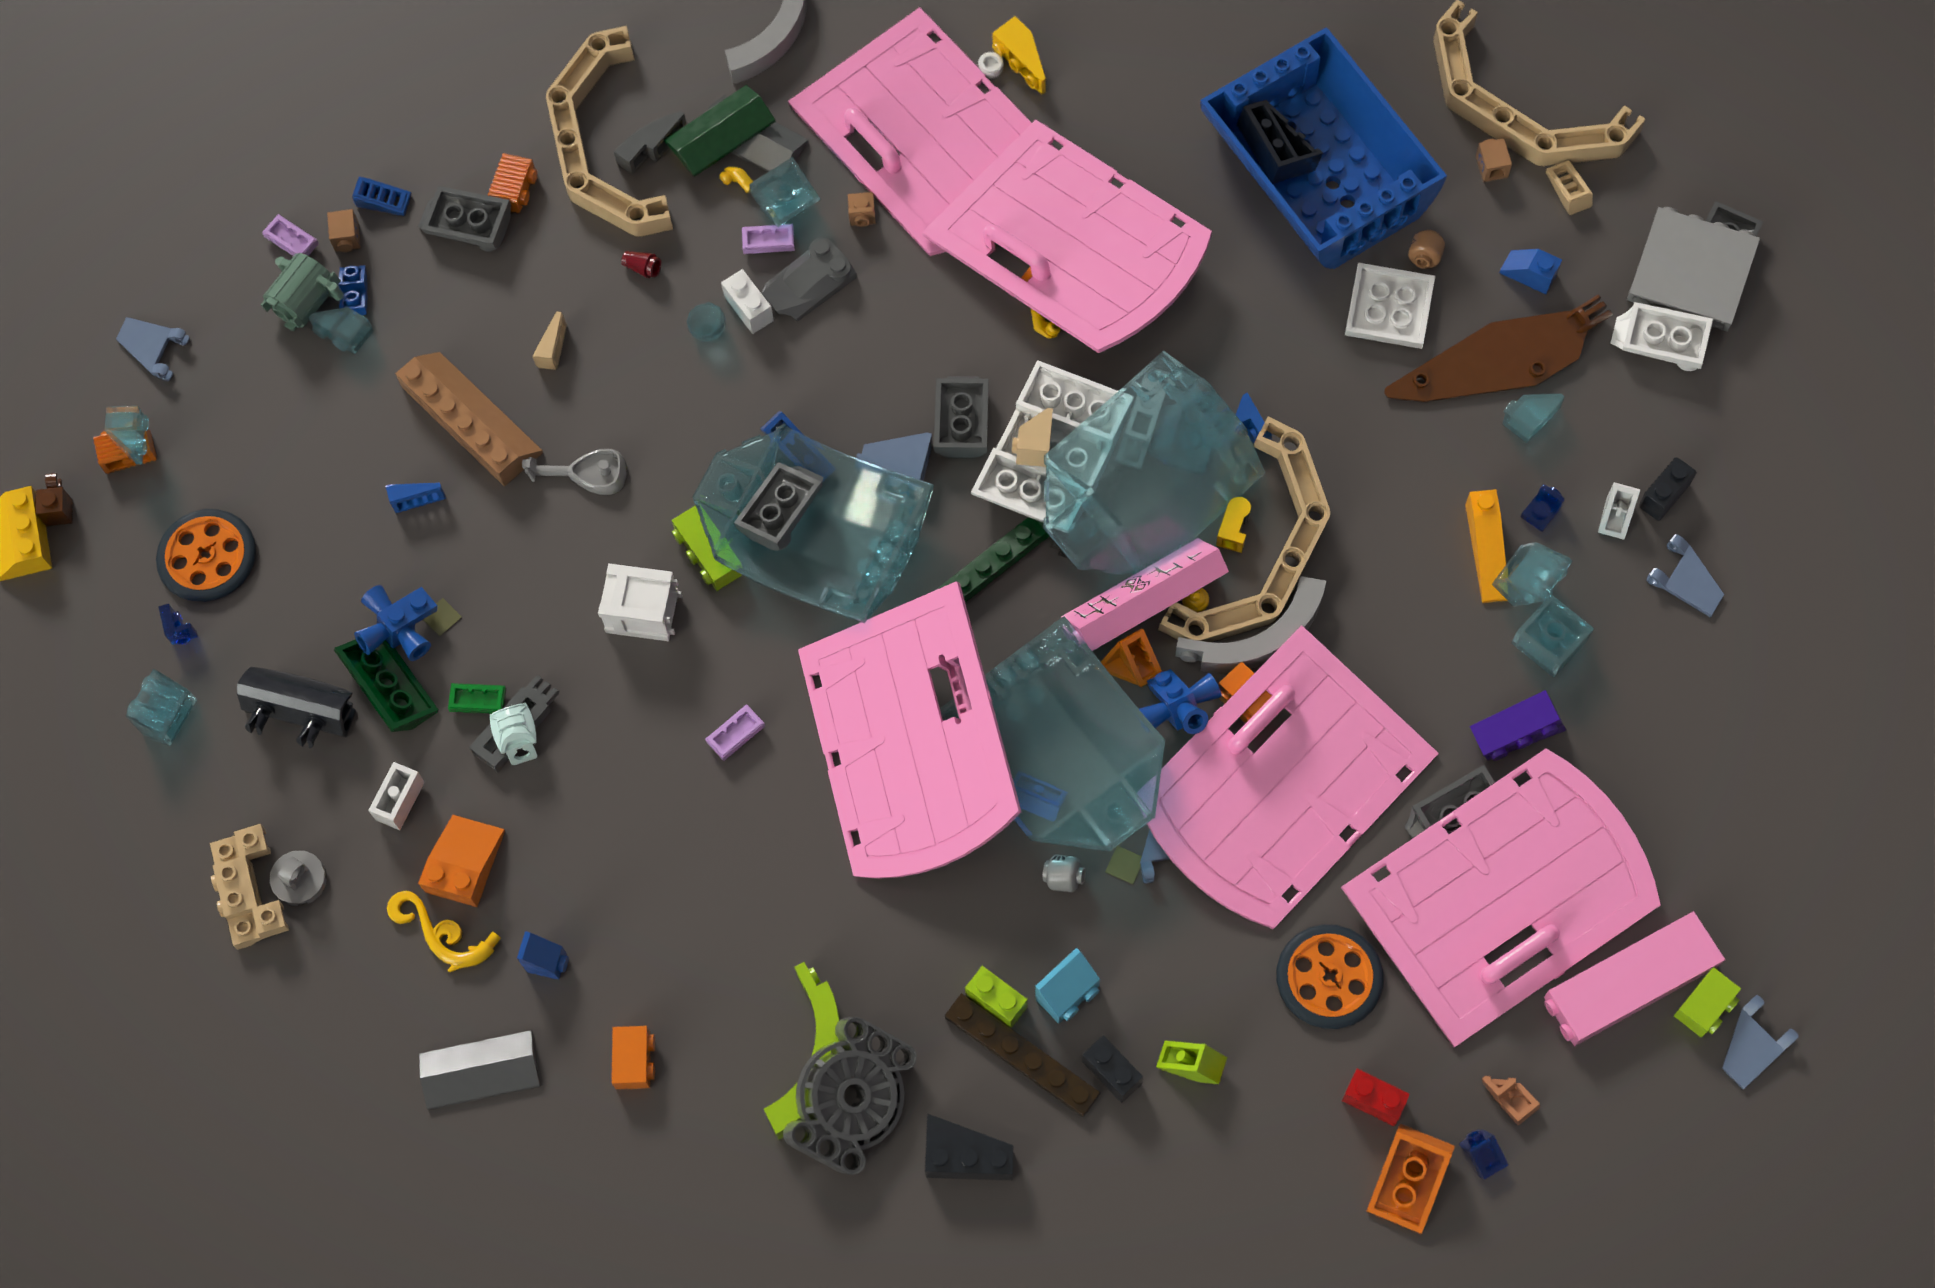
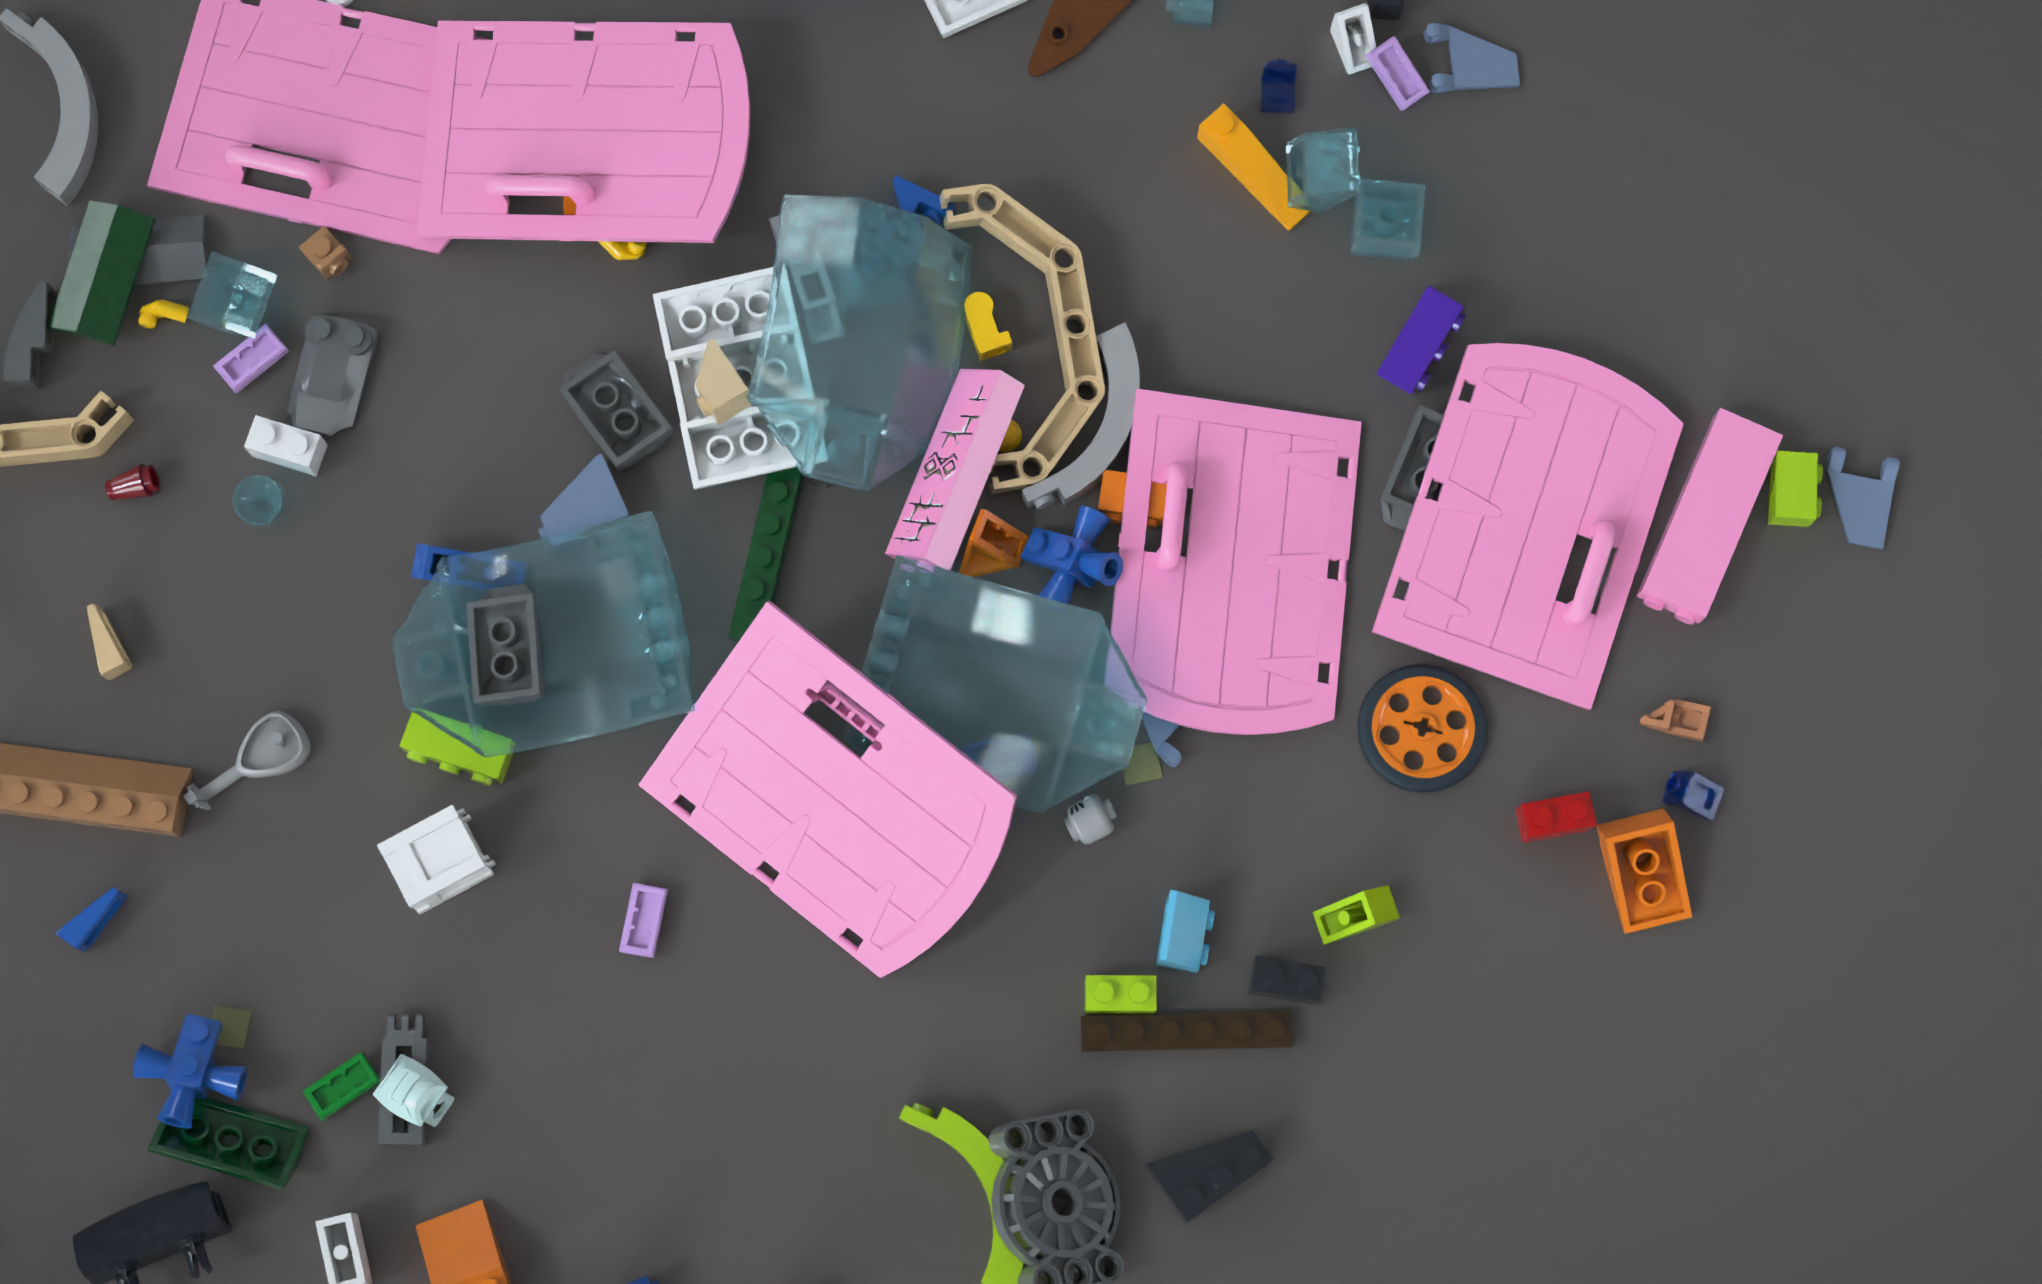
camera: 45 degrees left, 10 degrees up
(1631, 551) = (1397, 73): none -> lavender plate

